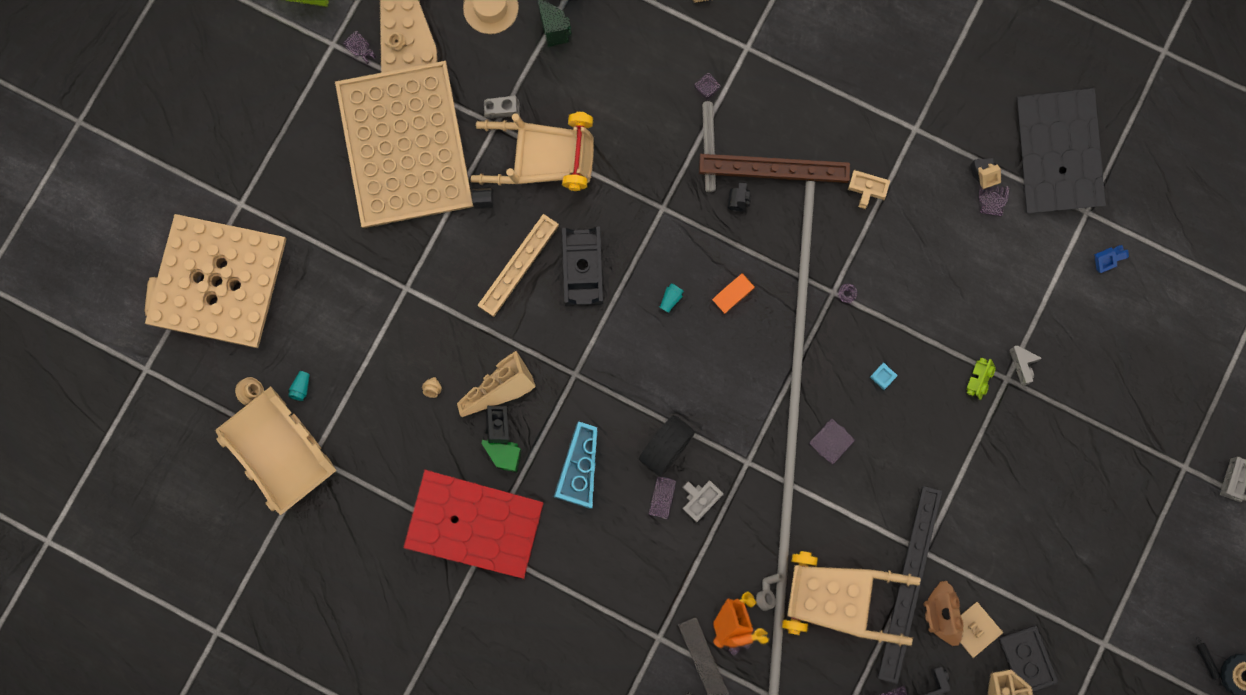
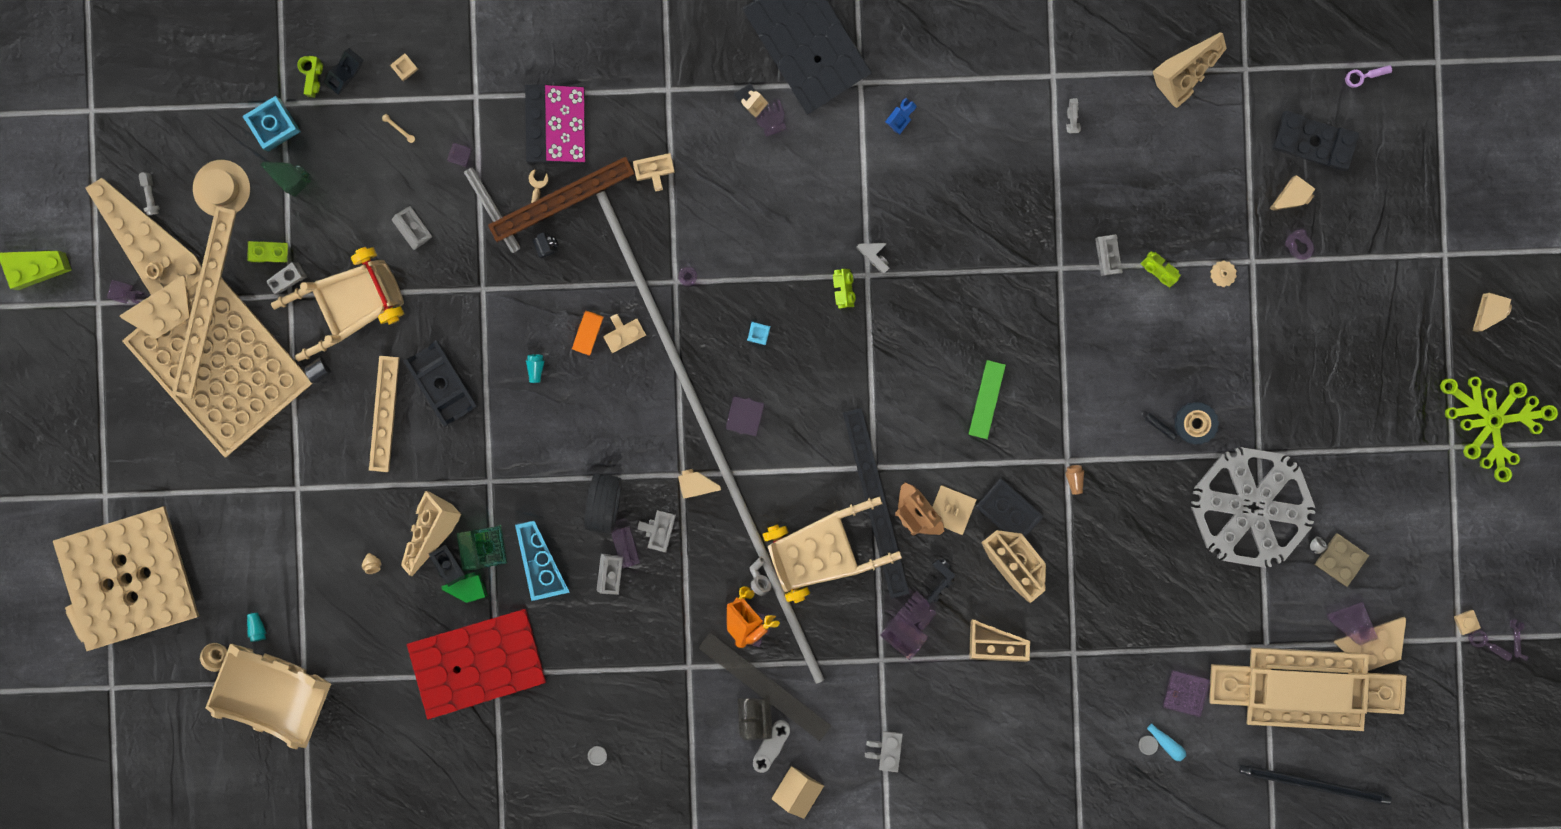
camera: 25 degrees left, 10 degrees up
(383, 74) = (161, 310): none -> tan wing
(422, 86) = (204, 302): none -> tan plate
(499, 77) = (267, 252): none -> lime plate
(532, 672) = (597, 755): none -> light grey piece
(536, 426) = (481, 548): none -> clear green slope
(631, 124) = (411, 227): none -> light grey slope
(635, 513) = (609, 574): none -> light grey slope
(673, 52) = (410, 138): none -> tan hinge
(757, 477) = (696, 484): none -> tan slope
(759, 146) = (538, 185): none -> tan piece
(764, 312) = (623, 334): none -> tan plate
(803, 104) = (555, 124): none -> slope
(1059, 547) = (986, 399): none -> bright green tile
(1105, 664) = (1075, 478): none -> medium nougat cone

